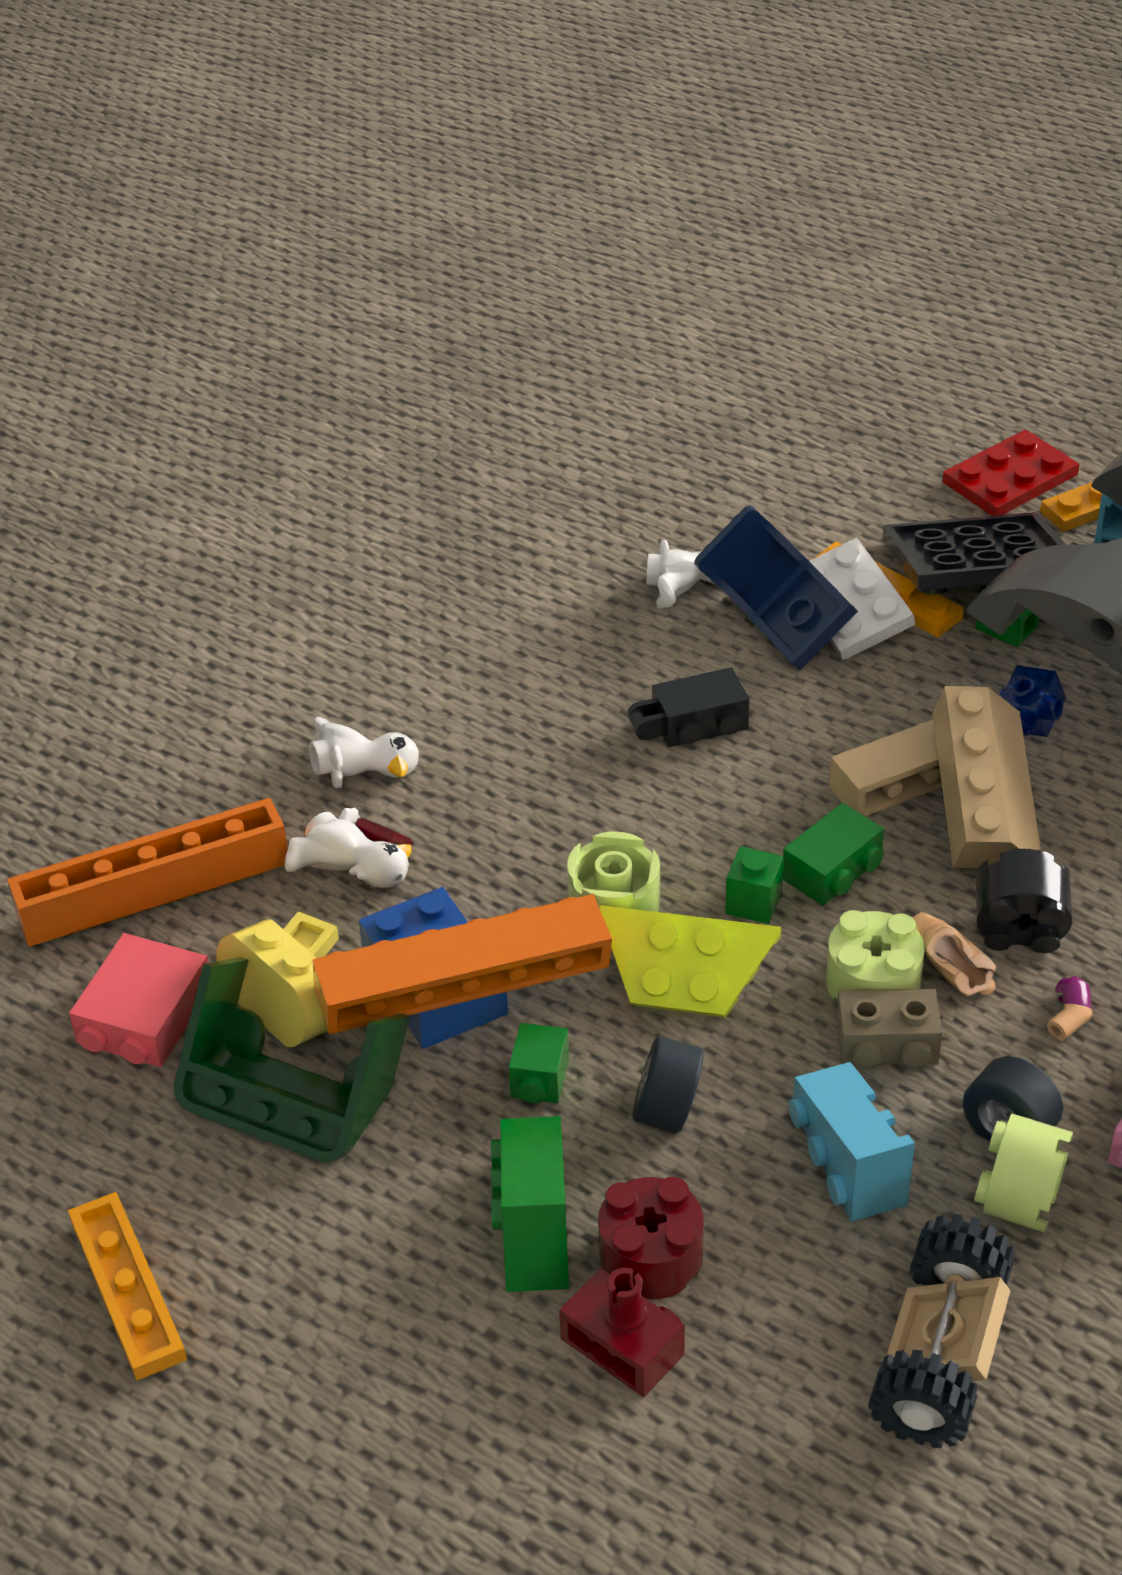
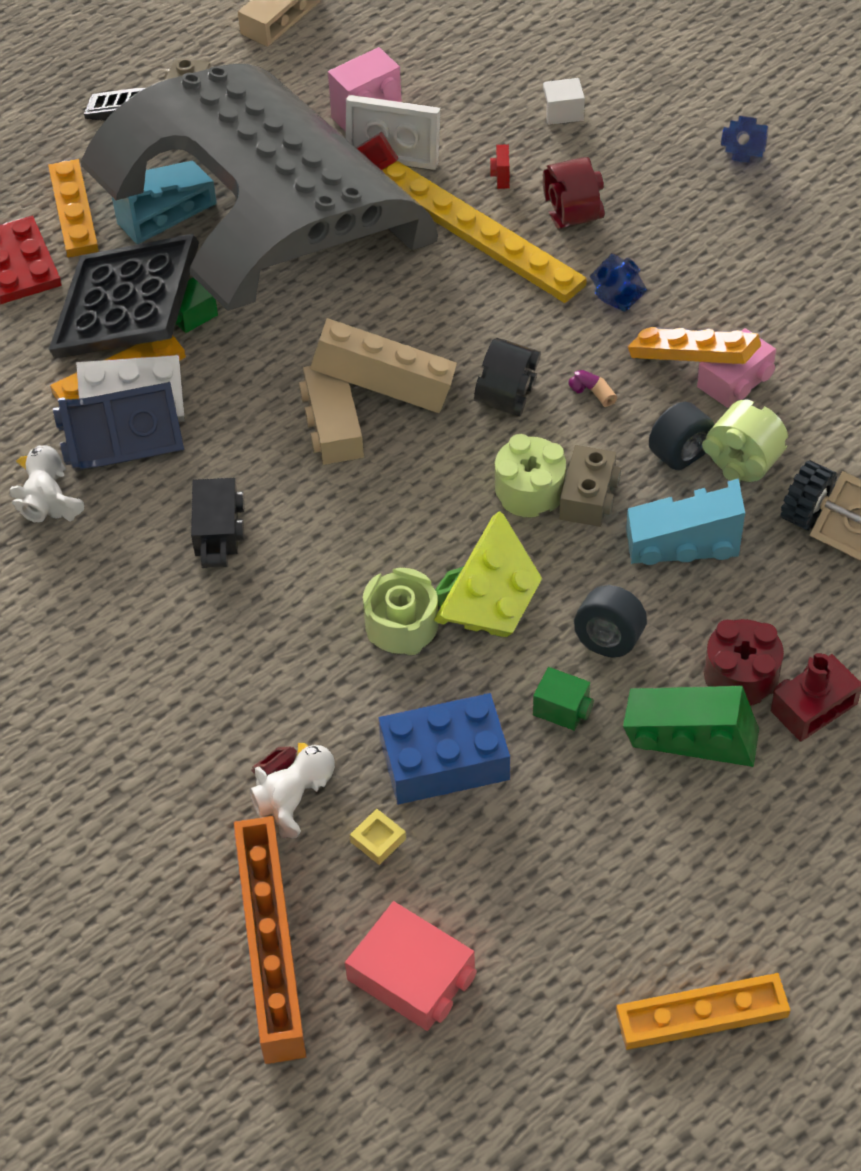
camera: 75 degrees left, 10 degrees up
(239, 1087) = (548, 874): dark green windscreen -> none
(276, 981) = (436, 854): light yellow brick -> none
(347, 752) = (171, 770): white animal -> none
(461, 963) = (490, 711): orange brick -> none
(754, 885) = (427, 526): green brick -> none
(833, 854) = (409, 473): green brick -> none
(955, 956) = (541, 425): light nougat animal -> none
(1037, 697) = (301, 316): clear blue brick -> none

